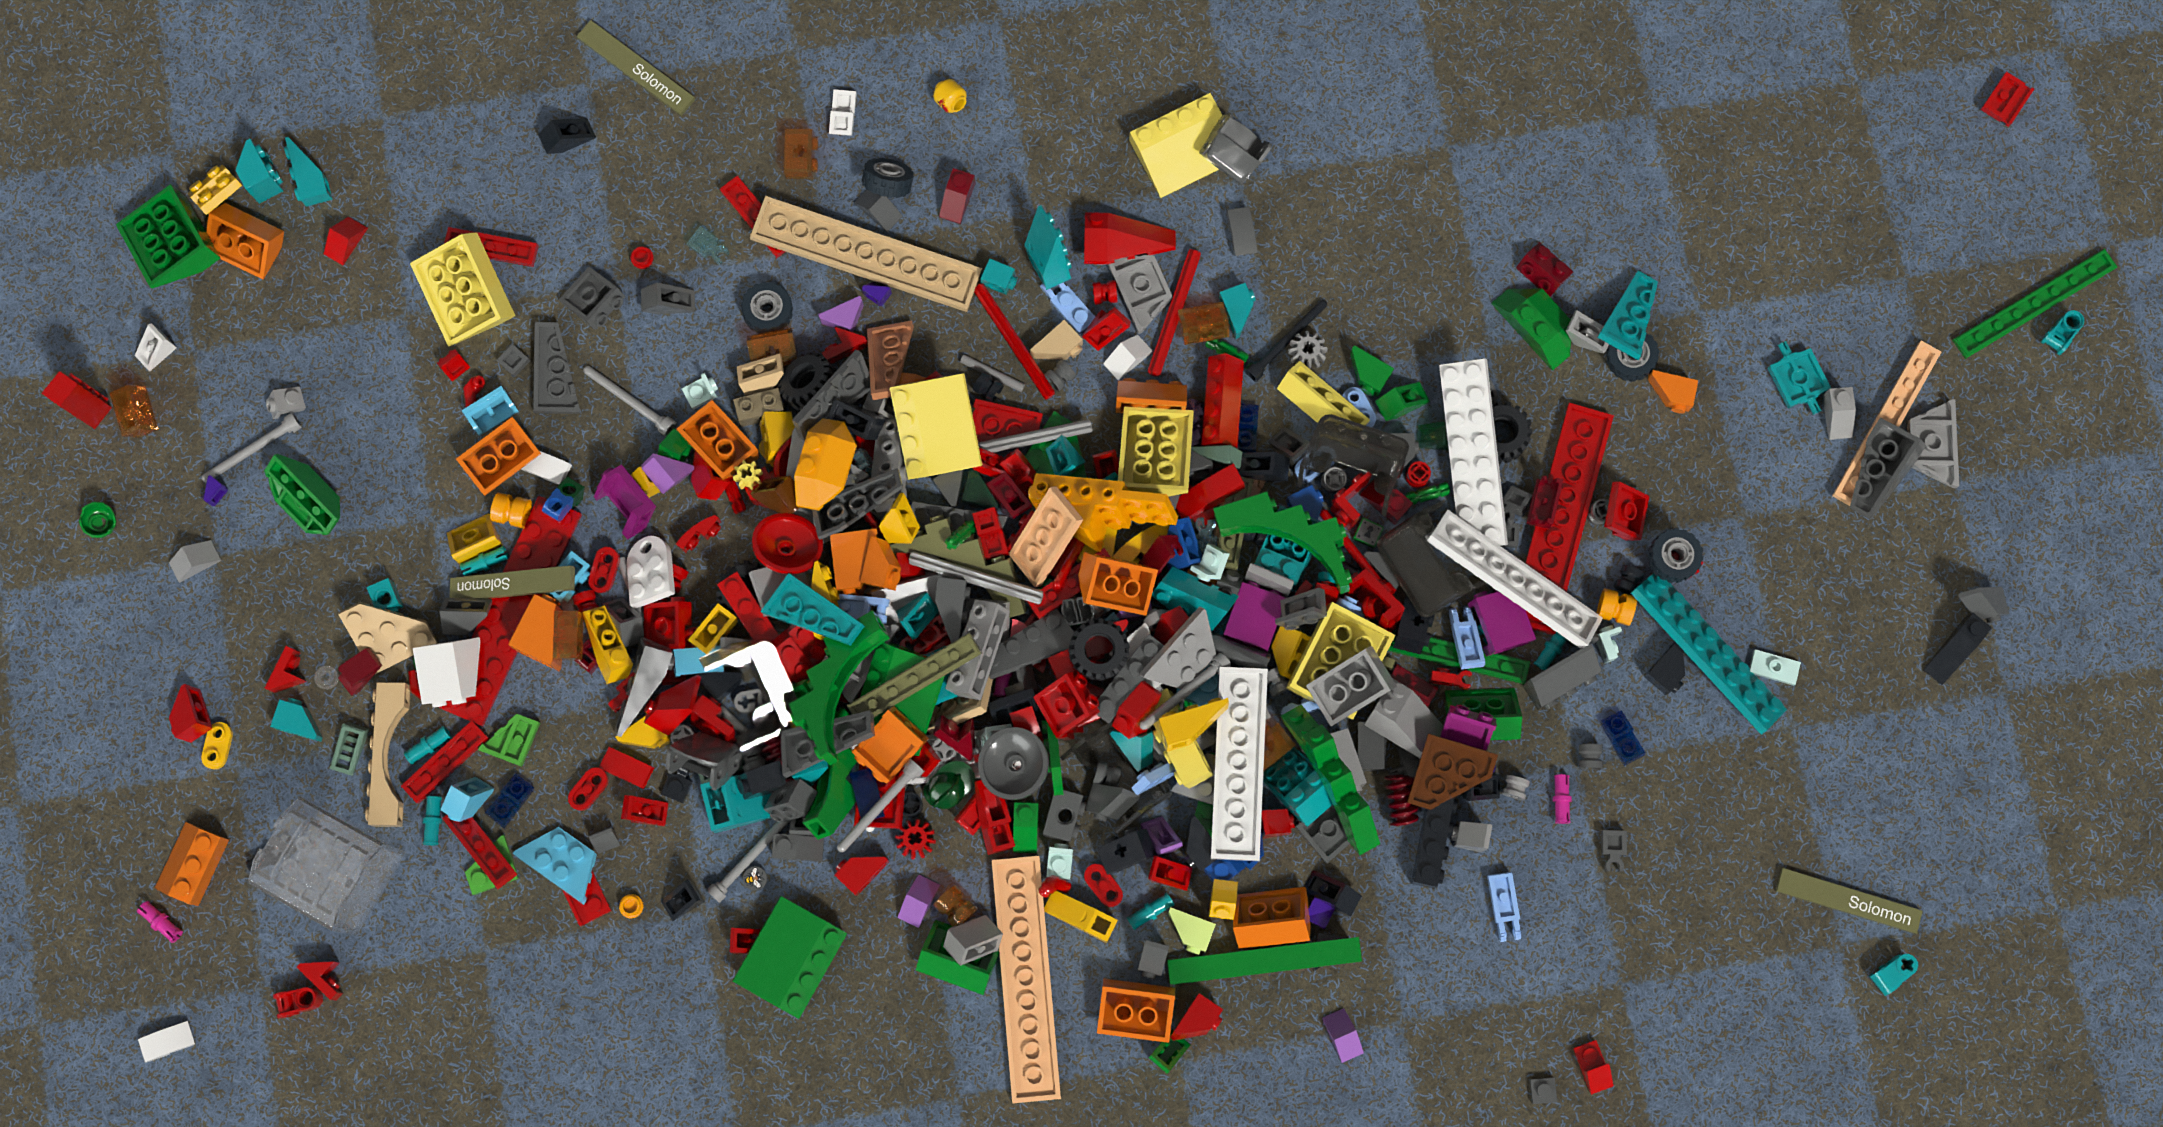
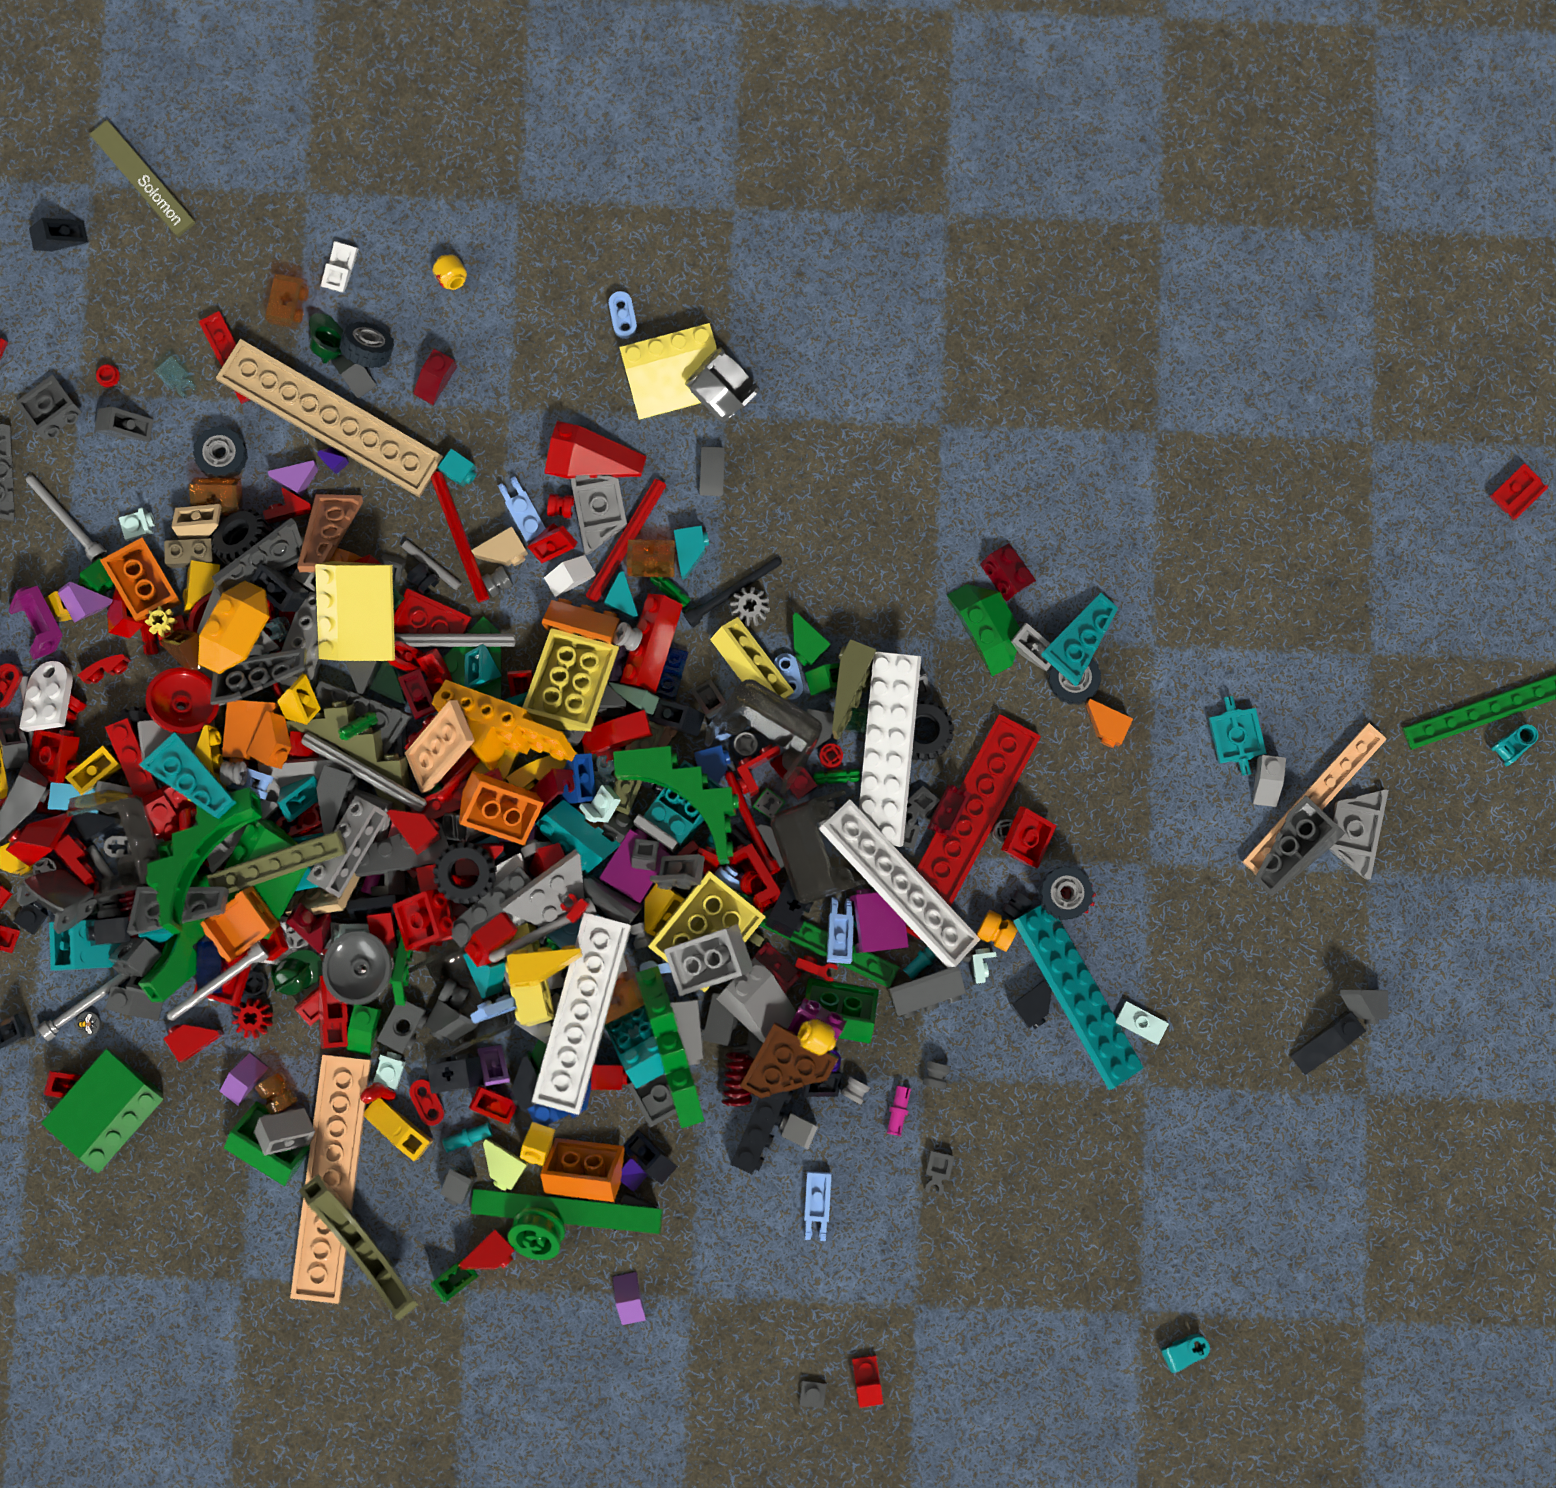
camera: 10 degrees right, 5 degrees up
(815, 653) = (186, 817): none -> red arm
(845, 180) = (325, 337): none -> dark green piece
(852, 602) = (233, 773): none -> light grey wheel
(990, 533) = (391, 731): red slope -> none
(1038, 620) = (415, 829): none -> red slope
(1047, 251) = (509, 454): teal slope -> none
(1072, 1034) = (360, 1245): none -> olive arch
(1124, 104) = (622, 315): none -> light blue plate
(1136, 1010) = (430, 1232): orange slope -> none
(1183, 367) = (620, 598): none -> teal slope
(1200, 398) = (627, 636): none -> light grey wheel
(1213, 663) = (576, 909): none -> red tile
(1241, 978) = (536, 1233): none -> green wheel
(1263, 602) = (645, 854): none -> dark grey slope
(1425, 394) = (853, 679): none -> olive wedge
(1474, 736) = (817, 1036): none -> yellow head
(1622, 737) = (973, 1062): clear blue slope -> none
(1849, 901) = (1159, 1271): olive tile -> none

